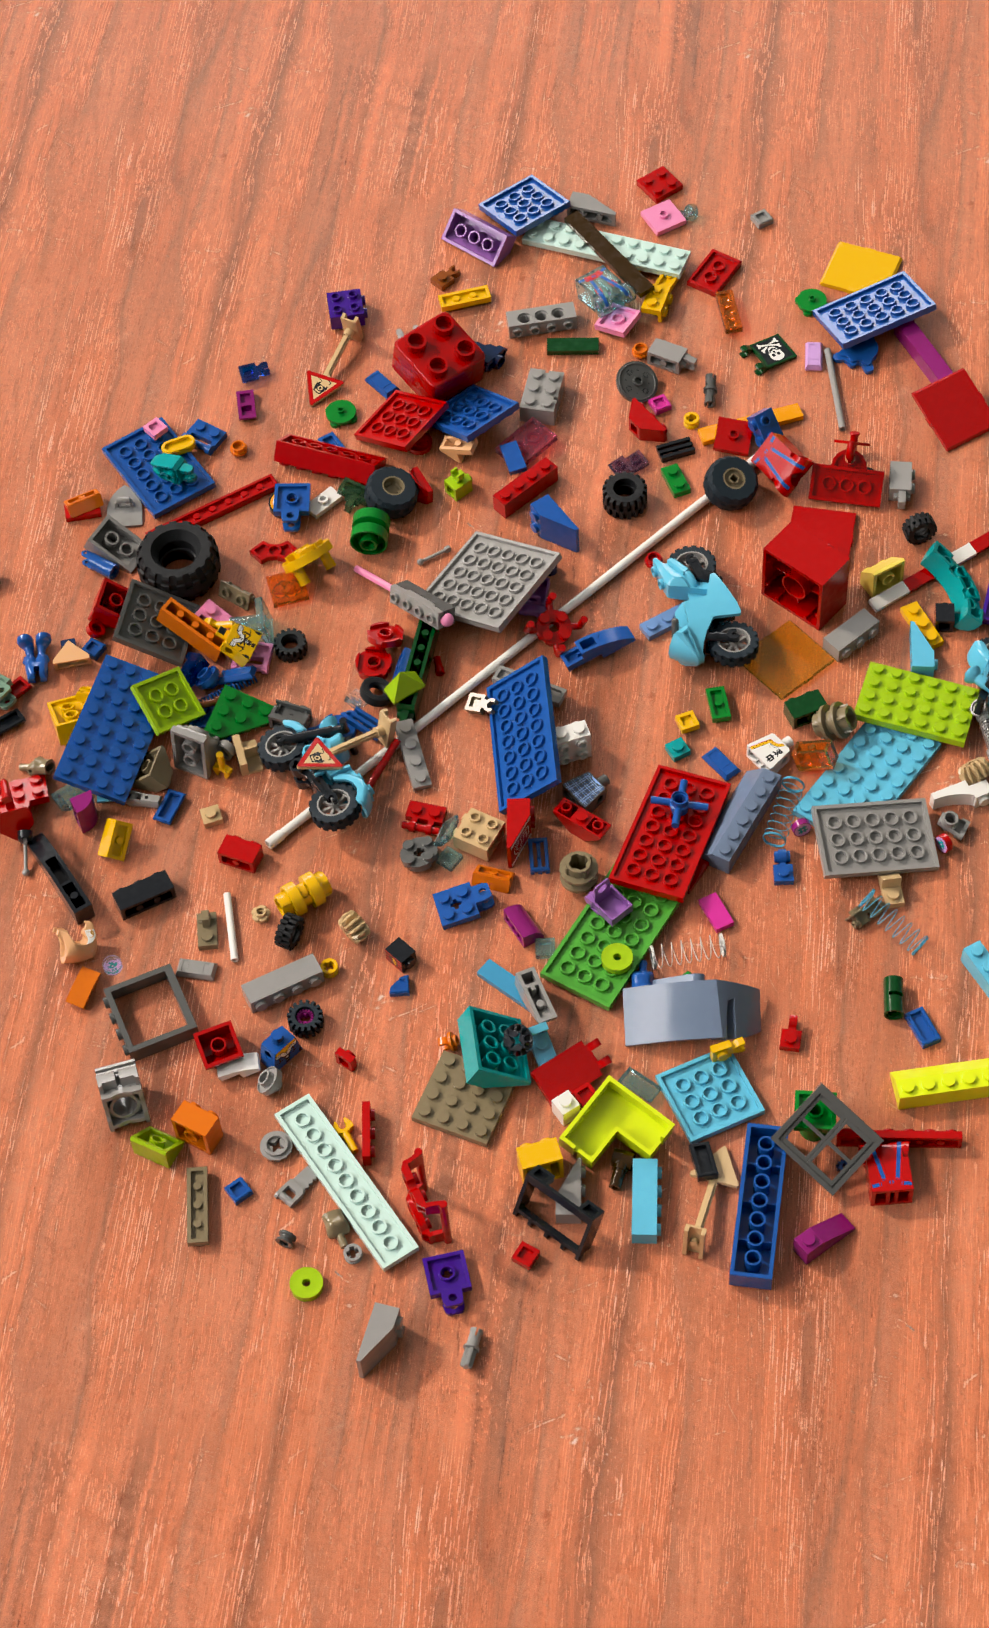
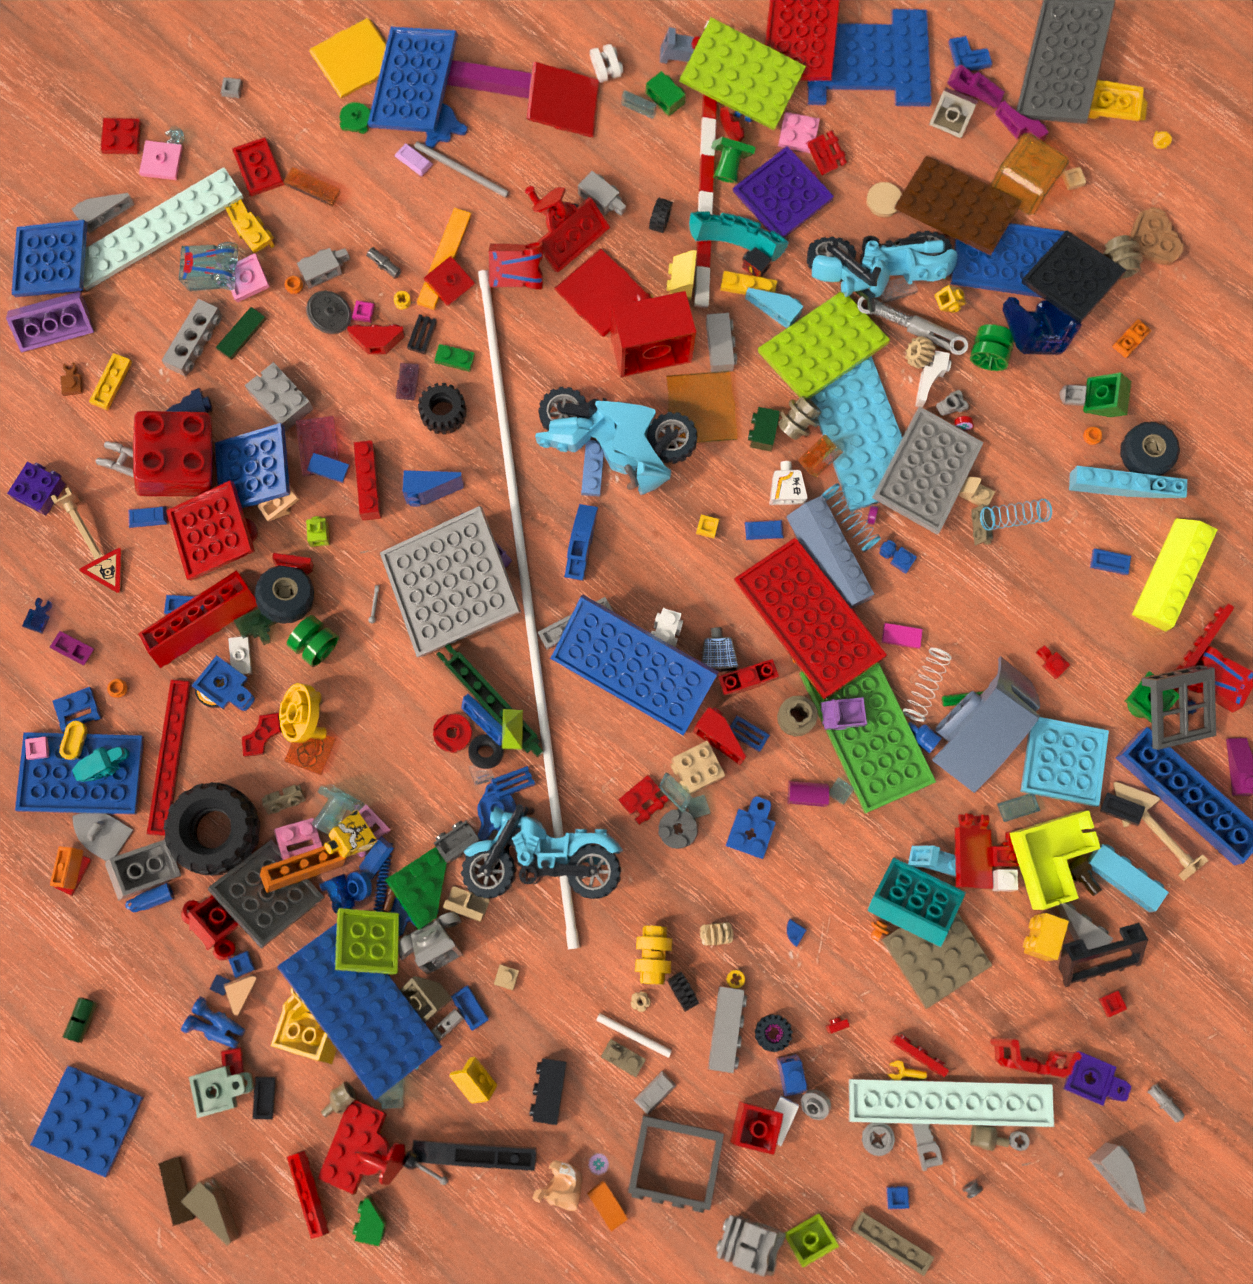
camera: 65 degrees left, 20 degrees up
(84, 811) = (426, 1090): magenta brick -> none
(197, 1126) = (824, 1197): orange brick -> none
(215, 624) = (315, 840): yellow bar -> none
(220, 765) = (466, 935): yellow bar -> none
(240, 853) = (567, 978): red brick -> none
(291, 654) = (386, 798): black tyre -> none
(310, 1292) = (1012, 1200): lime piece -> none
(321, 757) = (543, 852): tan piece -> none
(341, 413) = (151, 573): green piece -> none
(383, 763) = (566, 797): red bar -> none
(385, 636) = (440, 711): red plate -> none
(401, 955) = (768, 912): black brick -> none
(413, 755) = (575, 766): light grey plate -> none
(415, 601) = (424, 656): piece -> none
(439, 669) = (499, 682): red piece -> none
(479, 703) = (564, 677): plate -> none
(497, 879) = (743, 785): orange slope -> none
(501, 980) = (860, 842): dark azure tile -> none
(525, 1038) = (925, 875): black gear -> none
(534, 995) = (896, 835): light grey slope -> none
(558, 618) = (541, 555): red plate -> none
(609, 254) = (170, 232): dark brown tile -> none
(617, 966) = (904, 738): lime piece -> none
(649, 558) = (524, 434): red plate -> none
(677, 749) = (726, 552): teal plate -> none
(679, 803) = (799, 586): blue bar -> none
(718, 704) = (708, 490): green plate -> none
(725, 1049) = (1043, 726): yellow plate -> none
(730, 483) = (502, 319): black wheel -> none
(762, 424) = (467, 251): blue brick -> none
(770, 351) = (381, 186): flag -> none
(893, 997) = (1074, 563): dark green pin -> none

